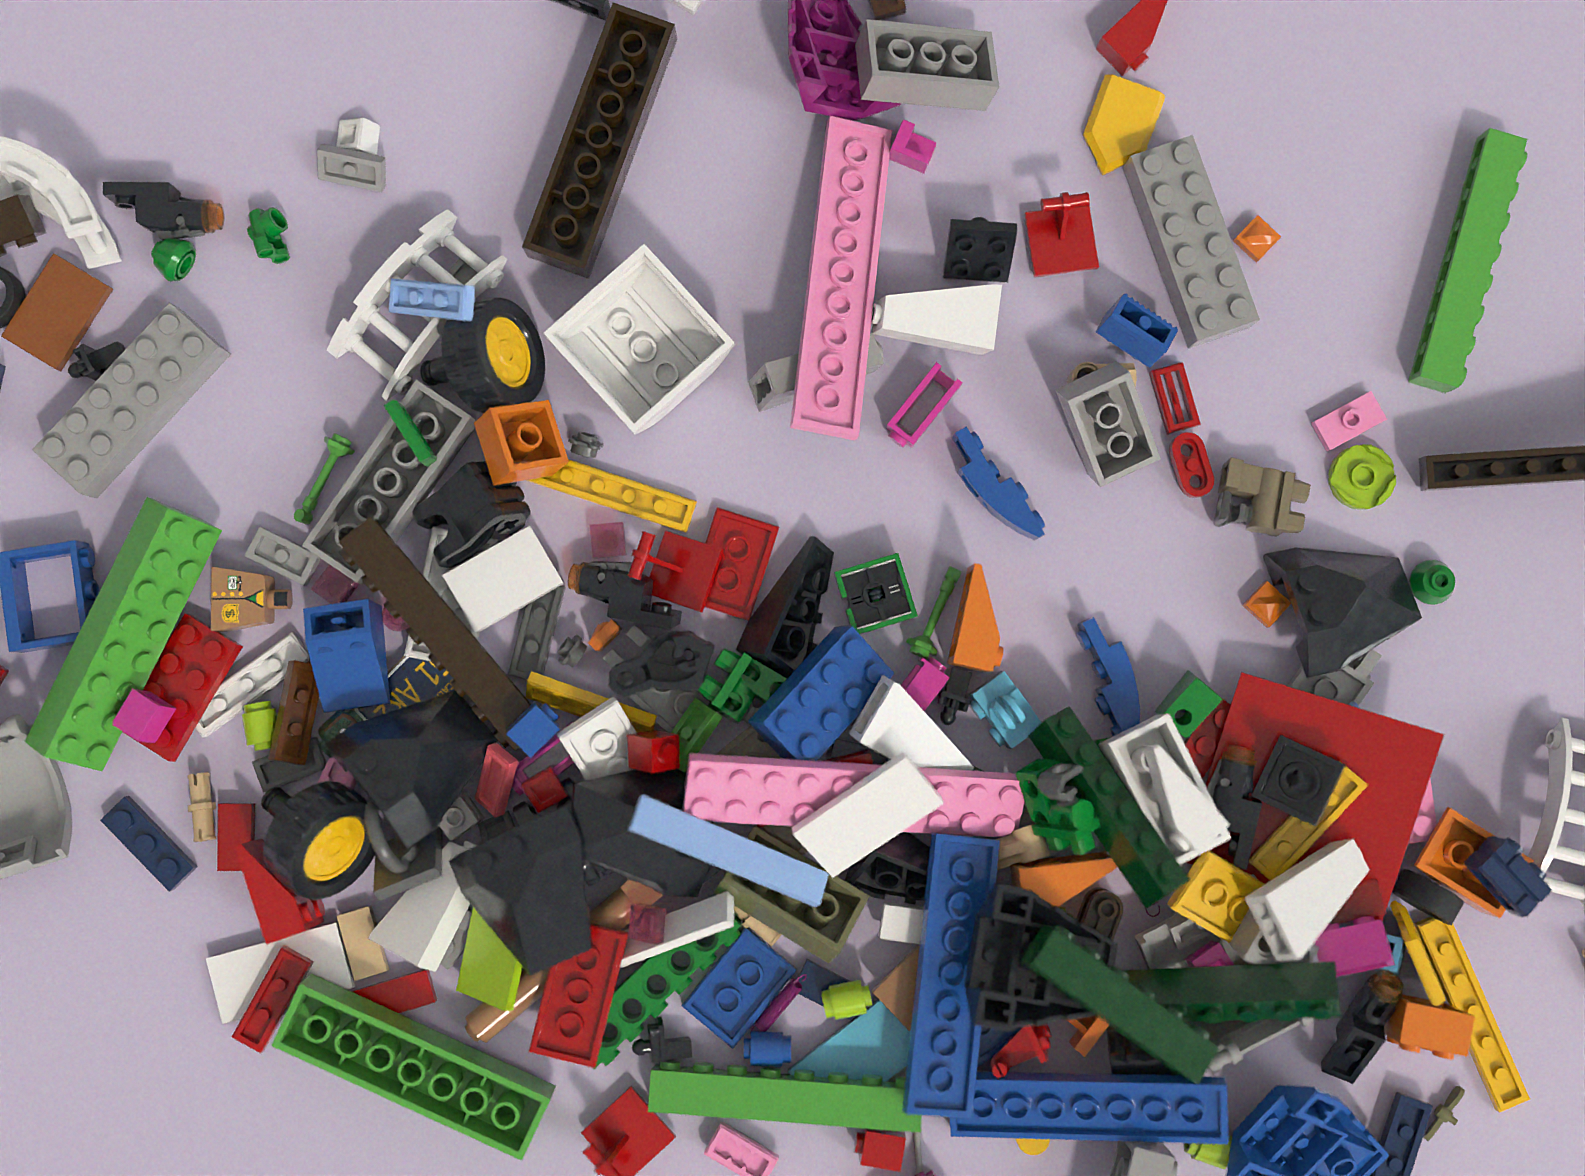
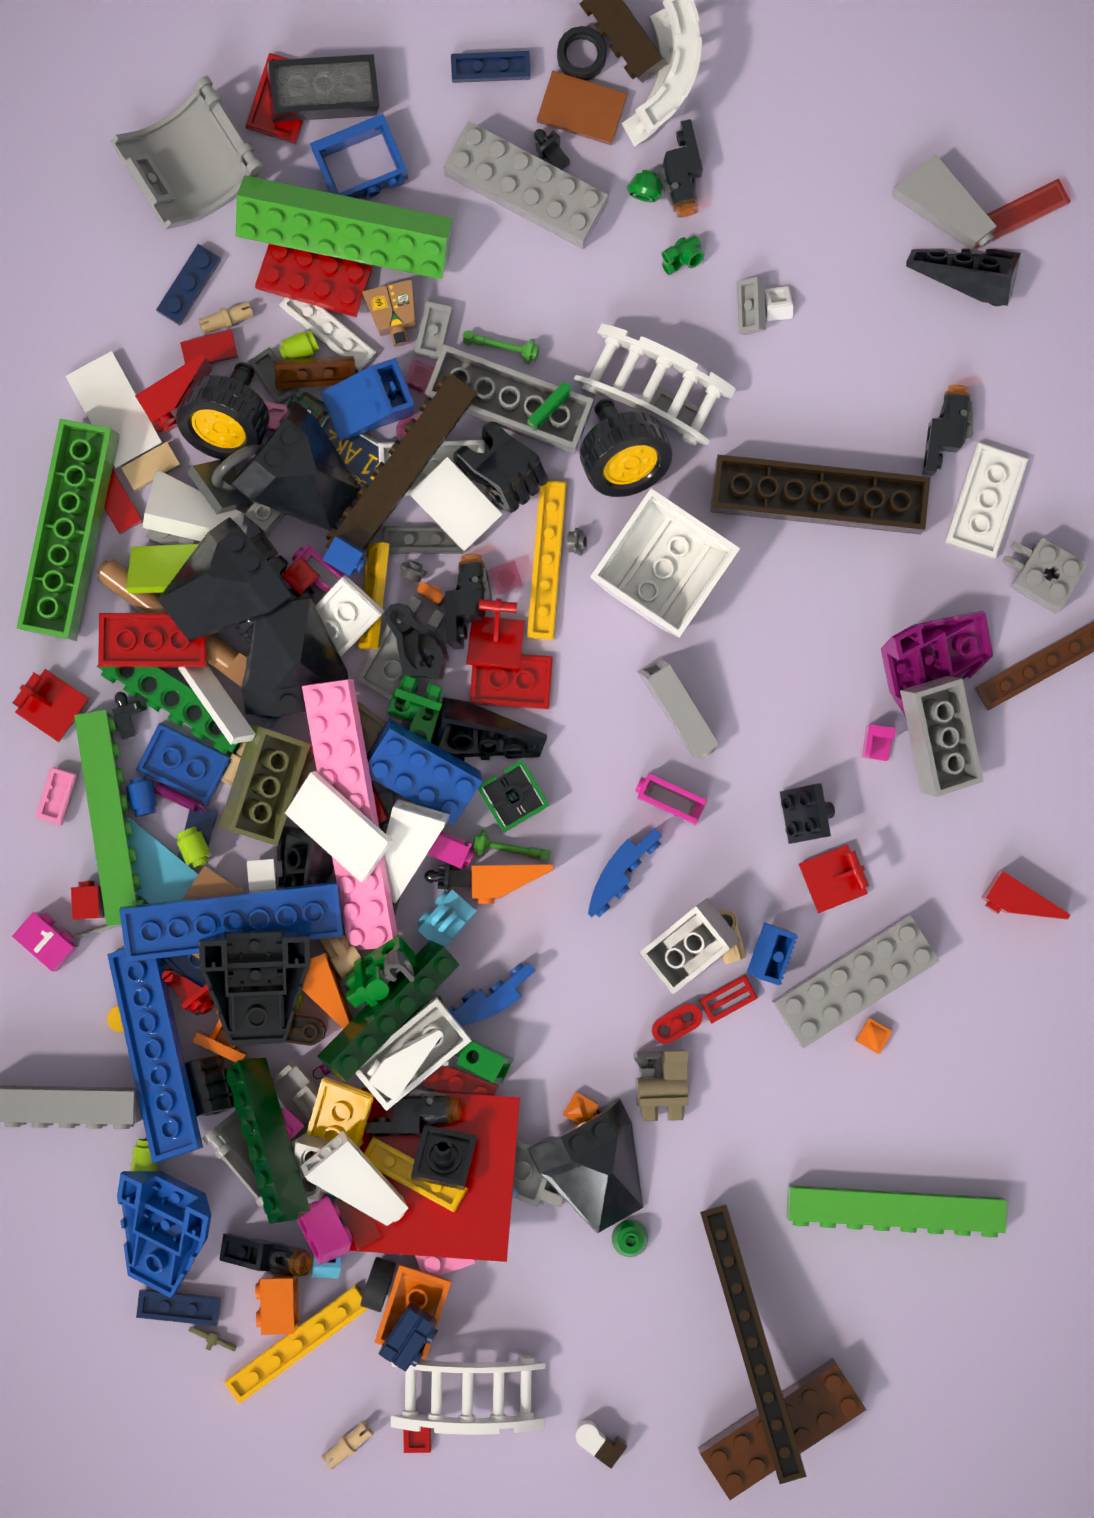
camera: 80 degrees right, 0 degrees up
(143, 716) = (284, 258): dark pink panel -> none
(272, 999) = (93, 409): red tile -> none
(432, 299) = (655, 396): light blue tile -> none
(496, 779) = (299, 537): coral tile -> none
(521, 442) = (563, 492): orange brick -> none
(647, 923) = (216, 679): clear pink plate -> none
(653, 751) = (349, 652): red brick -> none
(695, 729) = (369, 677): bright green plate -> none
(728, 851) = (286, 727): light blue tile -> none
(841, 279) = (755, 709): bright pink plate -> none
(943, 318) = (745, 803): white slope -> none
(1119, 1003) = (240, 1050): dark green brick -> none
(1121, 121) = (941, 905): yellow tile -> none
(1348, 421) = (743, 1143): bright pink plate -> none
(1362, 477) = (701, 1163): lime tile -> none
(1418, 954) = (331, 1286): yellow tile -> none

